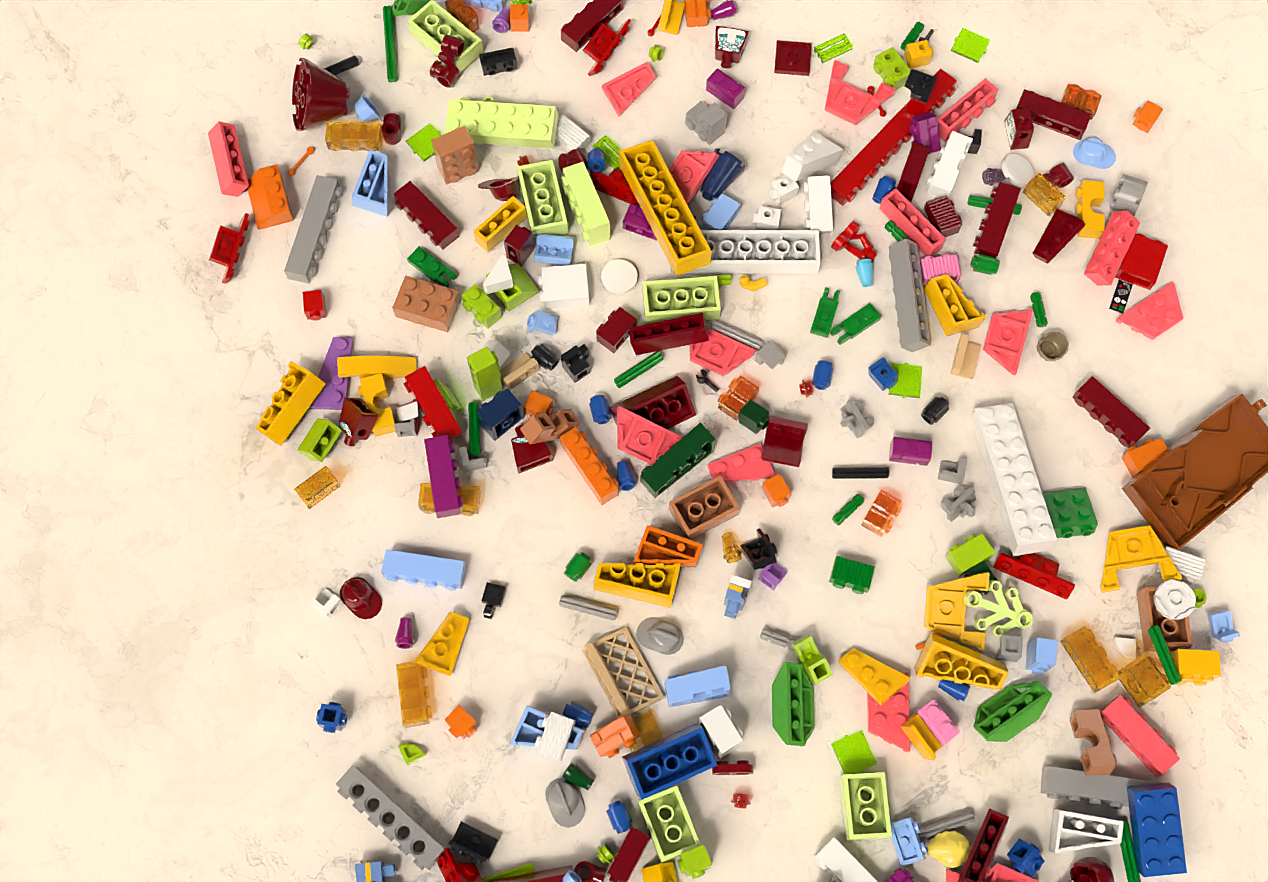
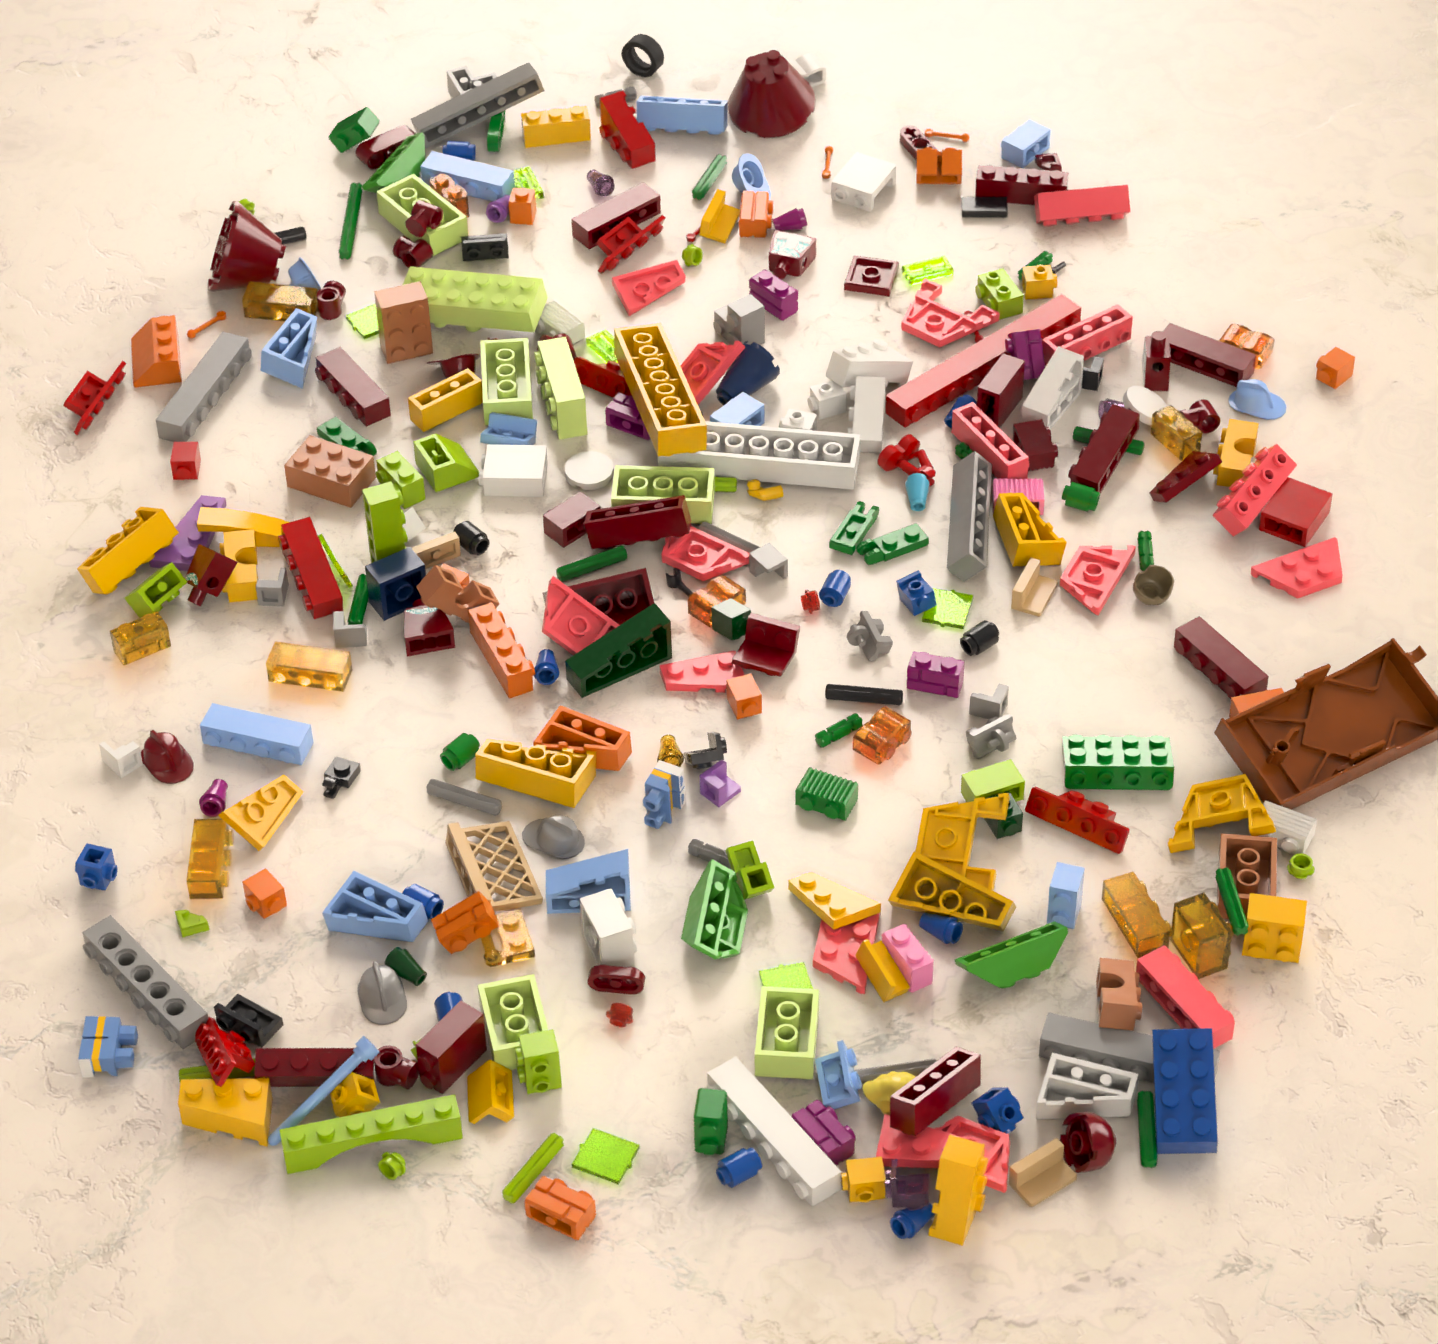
camera: 10 degrees right, 25 degrees down
(228, 159) = (114, 310): coral brick -> none
(406, 412) = (277, 570): white sticker -> none
(442, 476) = (305, 632): magenta brick -> none
(499, 277) = (426, 440): white slope -> none
(519, 245) = (464, 419): dark red brick -> none
(542, 322) = (476, 503): light blue bracket -> none
(555, 736) = (384, 899): white brick -> none
(575, 362) = (509, 544): black brick -> none
(596, 160) = (590, 343): blue brick -> none
(600, 409) = (530, 596): blue brick -> none
(669, 761) = (543, 946): blue brick -> none
(704, 508) = (643, 702): nougat brick -> none
(920, 85) = (1027, 302): black brick -> none
(970, 45) = (1112, 282): clear neon green piece -> none
(1001, 609) = (1020, 845): yellowish green plant -> none
(1010, 648) = (1026, 889): light grey panel -> none
(1013, 479) = (1065, 708): white brick -> none
(1120, 296) = (1263, 549): black sticker -> none
(1128, 194) = (1293, 436): light grey brick -> none
(1174, 599) = (1259, 848): white tile -> none
(1222, 626) = (1329, 896): light blue bracket -> none

